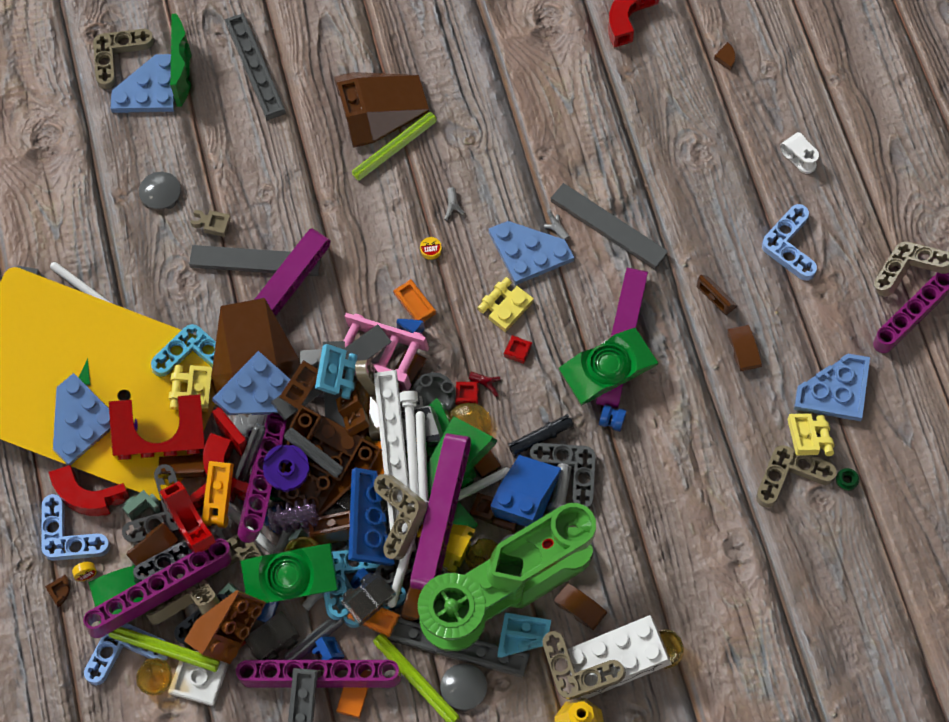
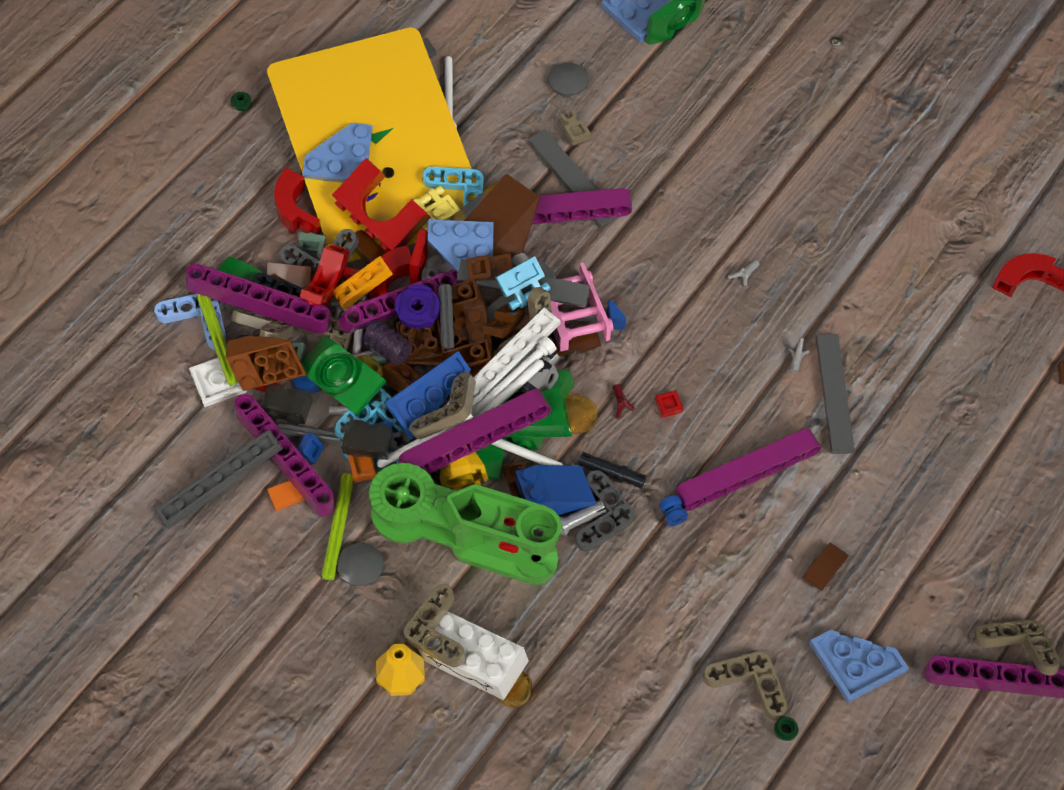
camera: 45 degrees right, 5 degrees down
(59, 537) = (246, 217): light blue beam -> none
(59, 590) = (208, 244): reddish brown tile -> none
(84, 571) = (234, 247): yellow tile -> none
(154, 677) = (191, 349): clear yellow hair -> none
(250, 452) = (421, 274): dark grey axle -> none
(255, 66) = (726, 65): dark grey tile -> none
(379, 103) = (775, 162): reddish brown wedge -> none
(394, 146) = (753, 199): lime axle -> none
(414, 301) = (640, 305): orange tile -> none
(430, 248) = (694, 284): tile -> none
(435, 386) = (582, 367): dark grey dish -> none
(466, 392) = (600, 394): red tile -> none
(480, 653) = (395, 553): dark grey tile -> none
(487, 465) = (554, 448): reddish brown tile -> none
(510, 308) = (697, 374): light yellow plate -> none
(521, 633) = (435, 570): medium azure wing -> none
(528, 251) = (758, 352): medium blue plate -> none
(580, 606) = (496, 600): reddish brown slope -> none
(607, 365) = (711, 472): green slope -> none
(715, 294) = (853, 512): reddish brown slope -> none
(783, 246) = (944, 533): light blue beam -> none
(800, 151) = (1039, 486): white piece -> none
(804, 435) = (790, 664): light yellow plate -> none

